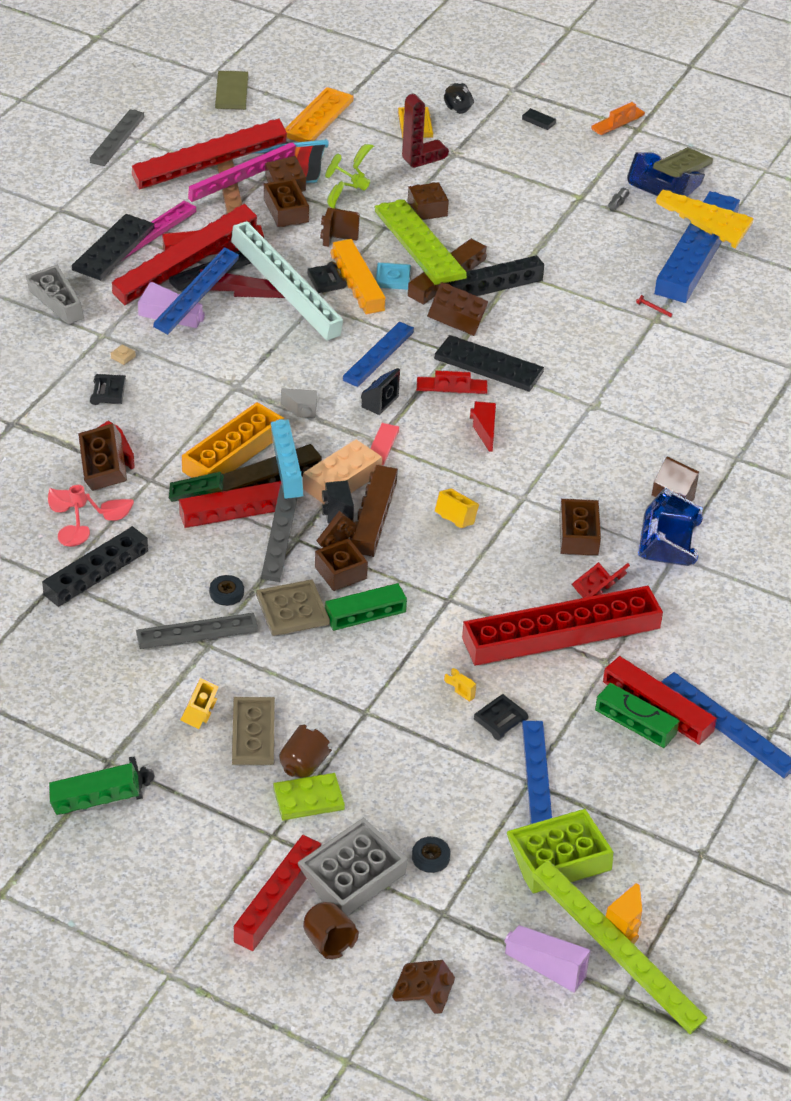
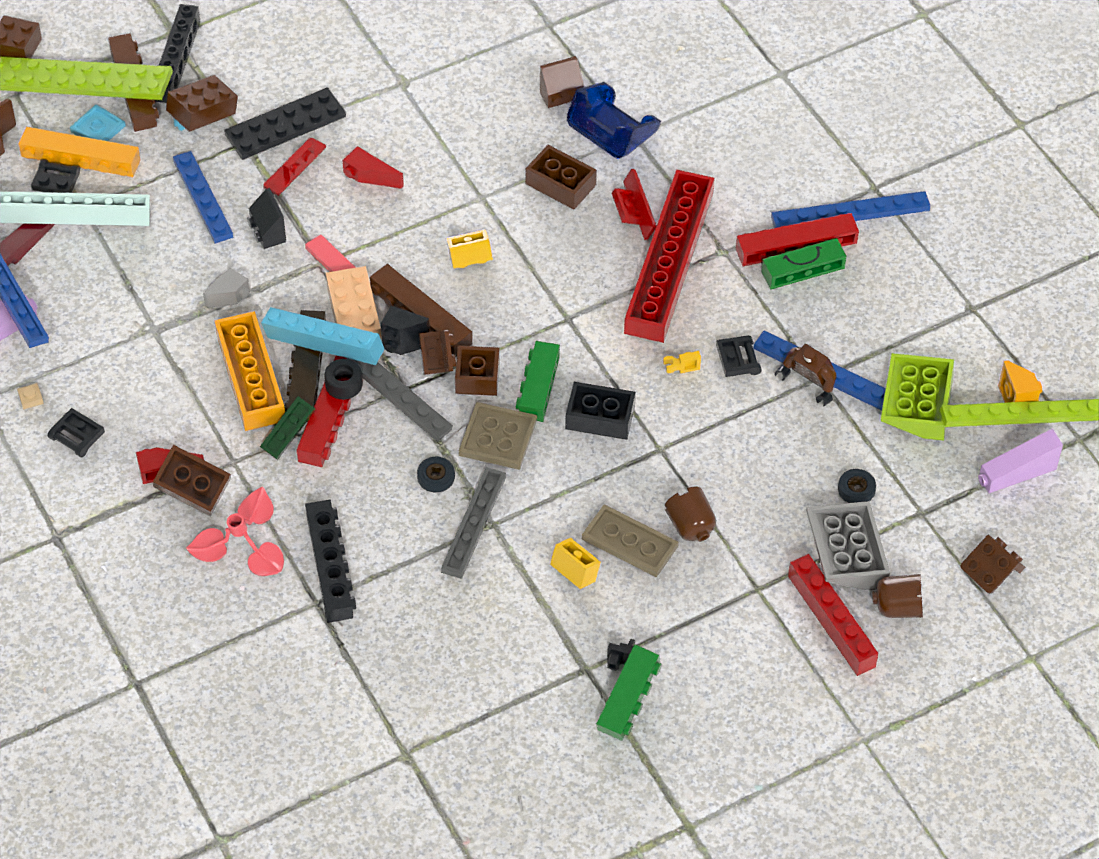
camera: 55 degrees left, 10 degrees up
(260, 490) = (343, 389): none -> black tyre
(308, 796) = (732, 540): lime plate -> none
(364, 652) = (600, 410): none -> black brick
(522, 764) = (812, 366): none -> reddish brown torso

